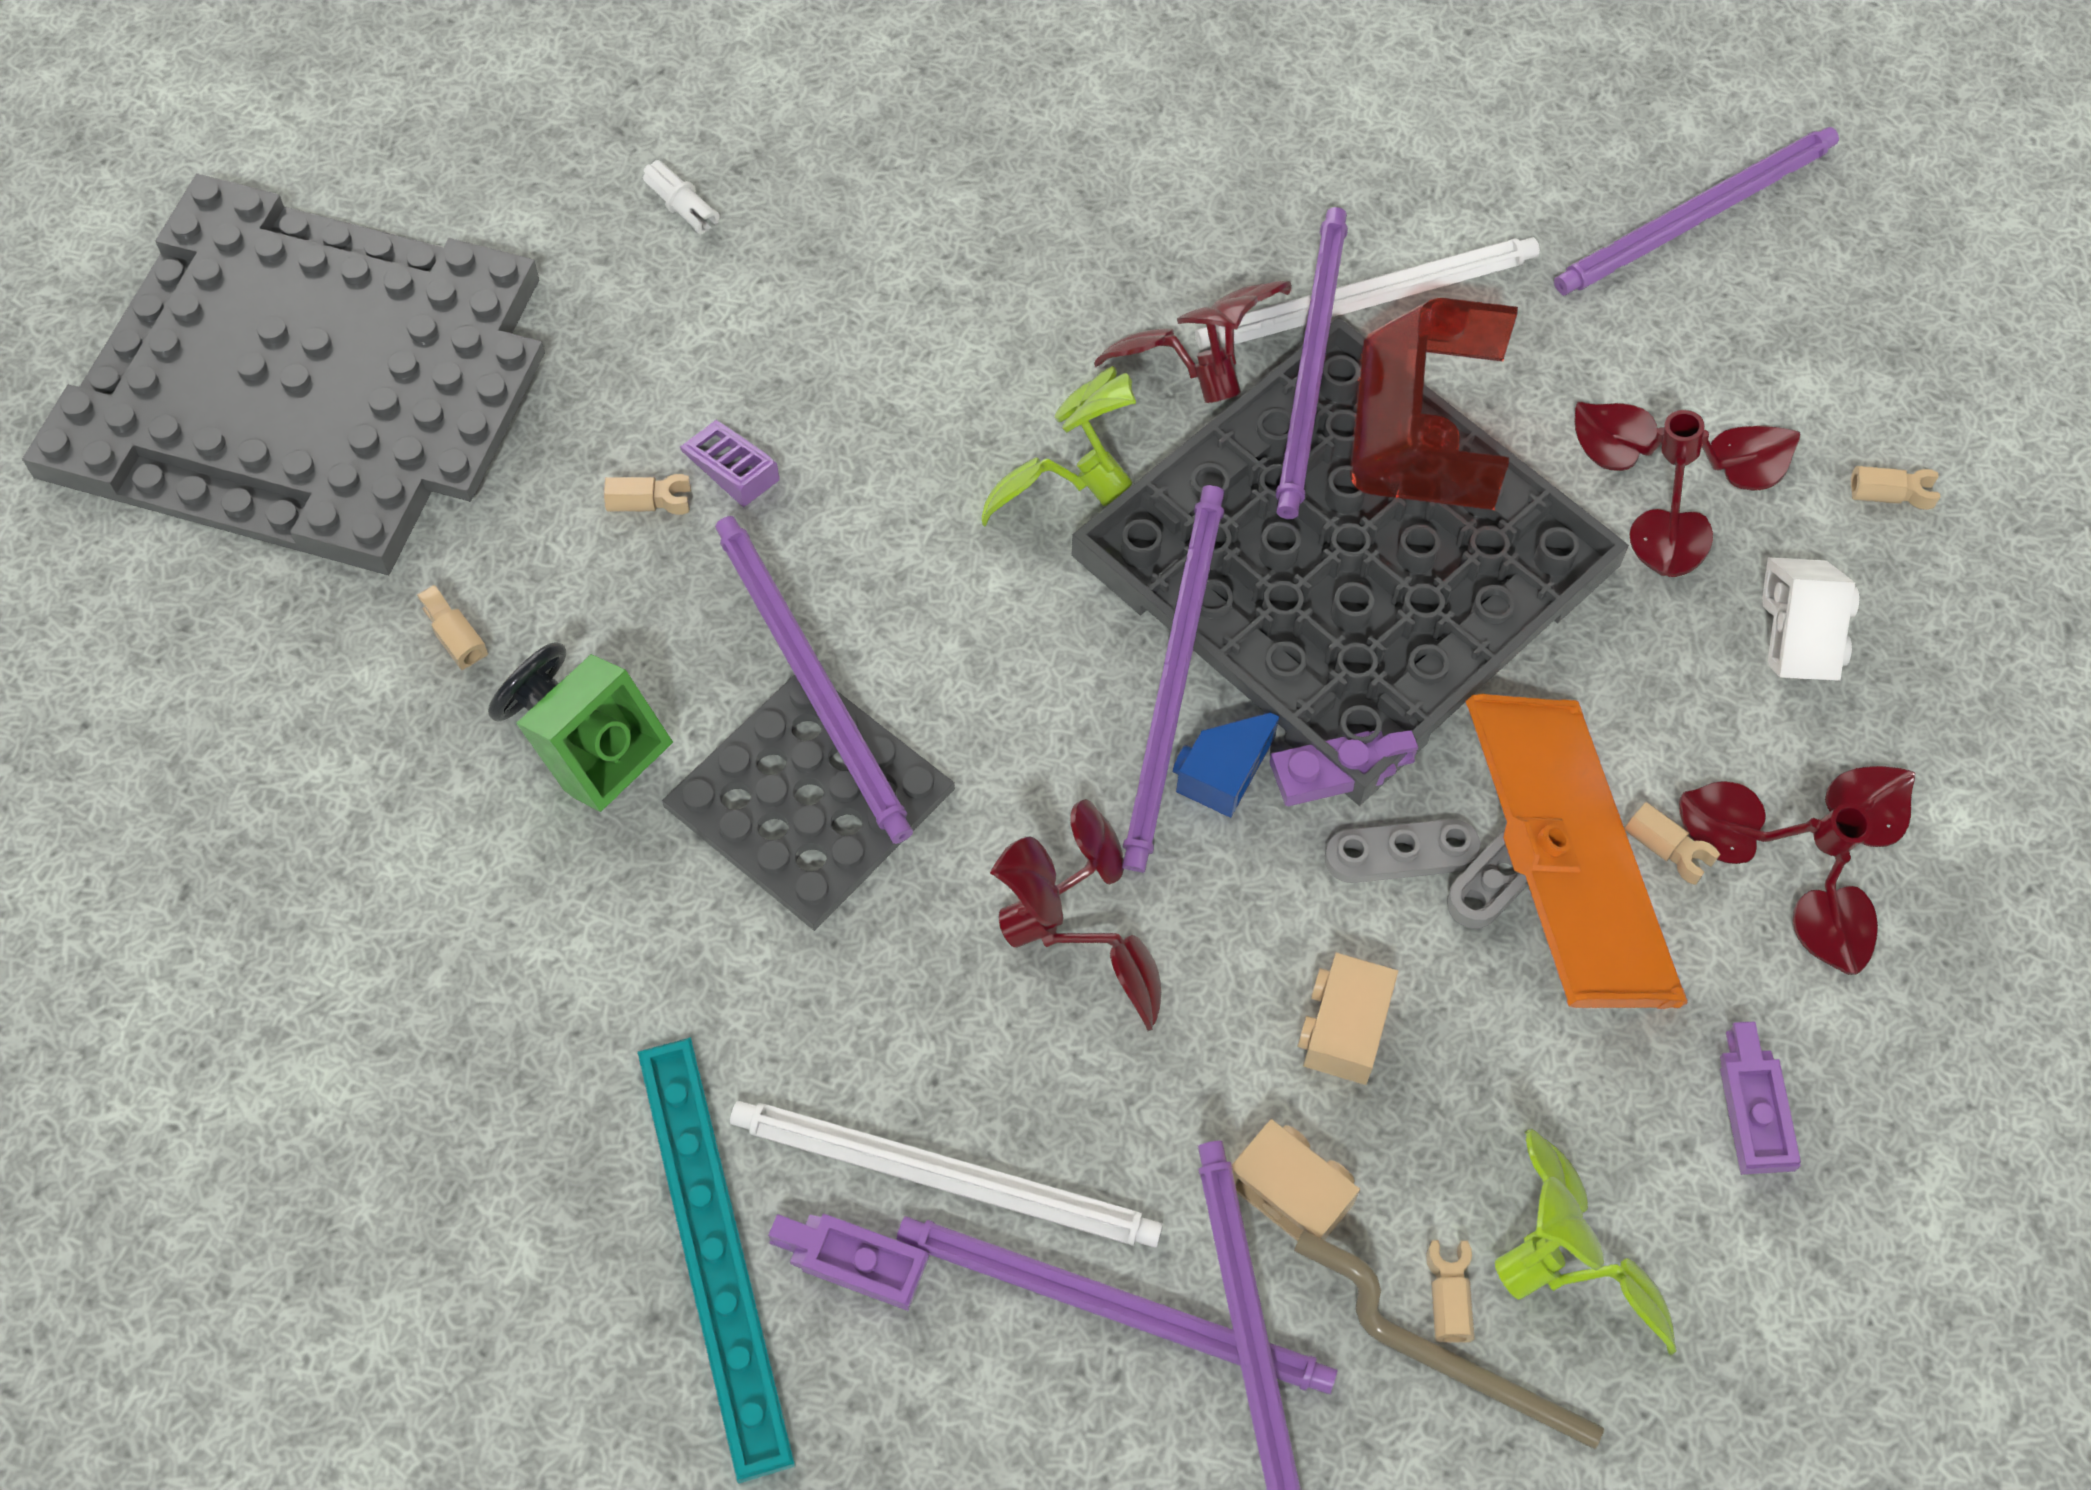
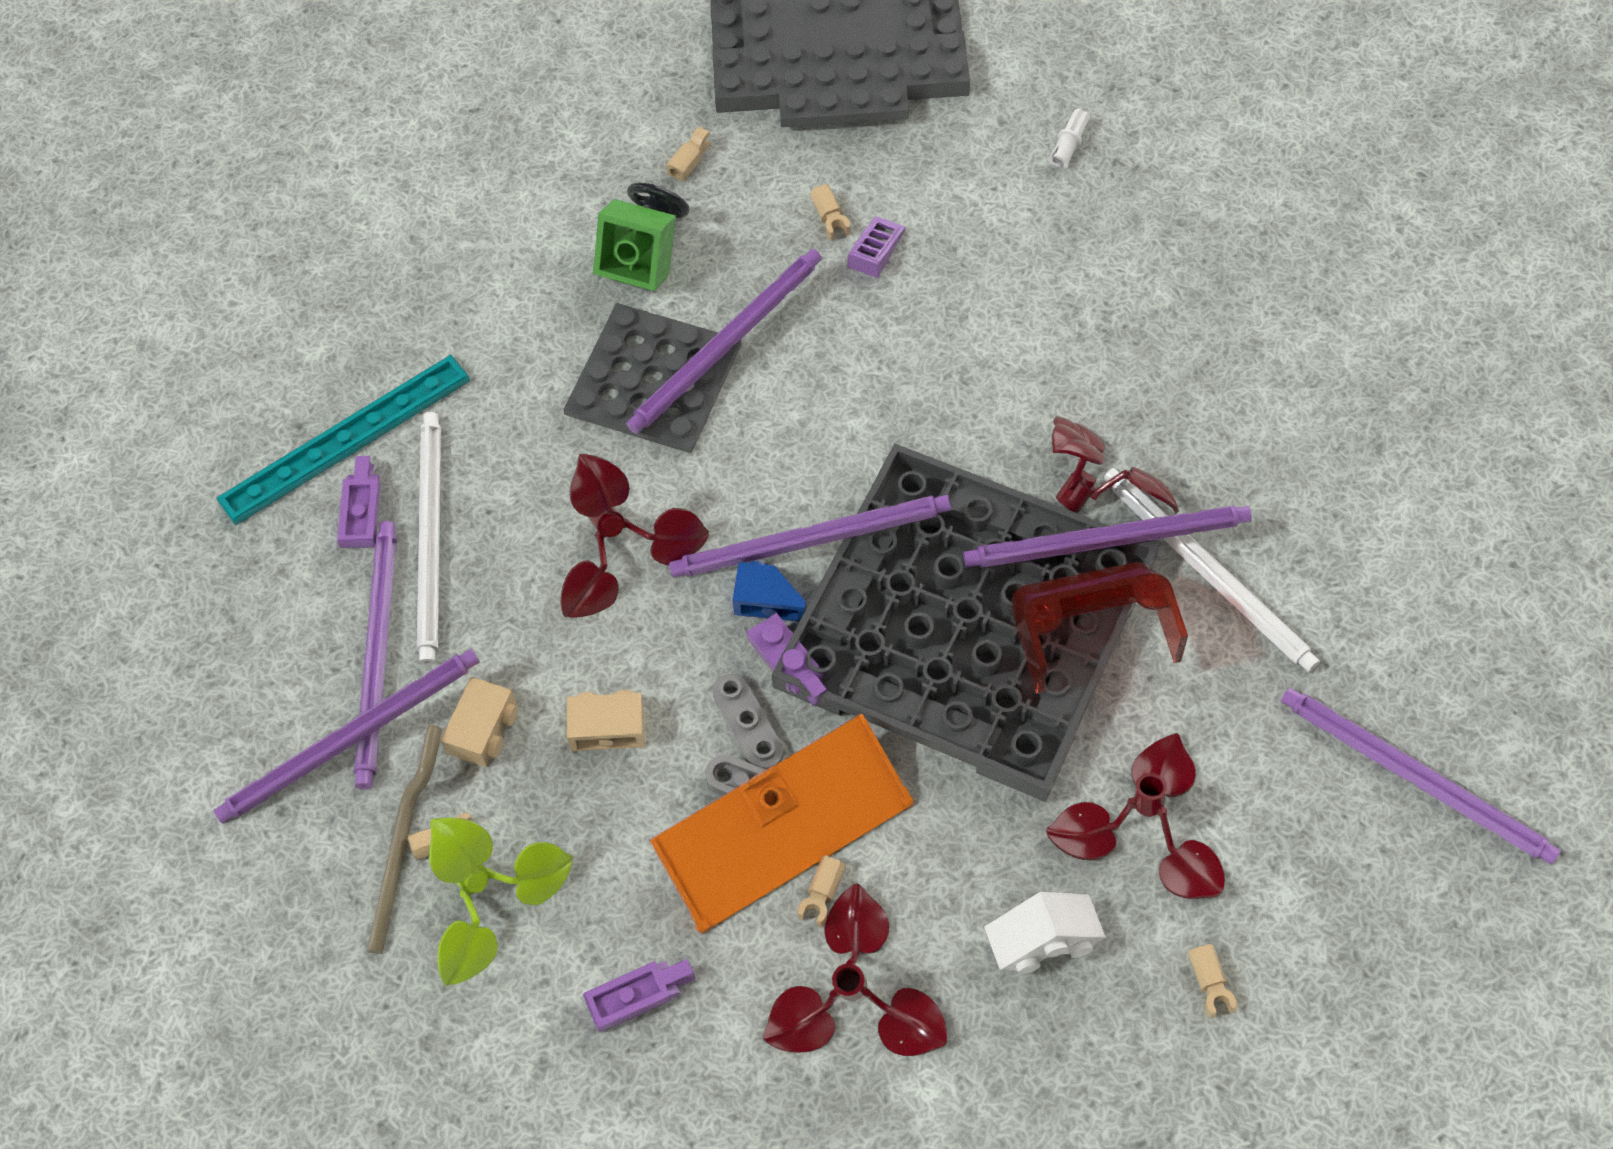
camera: 75 degrees right, 0 degrees up
(1098, 467) = (960, 445): lime plant -> none

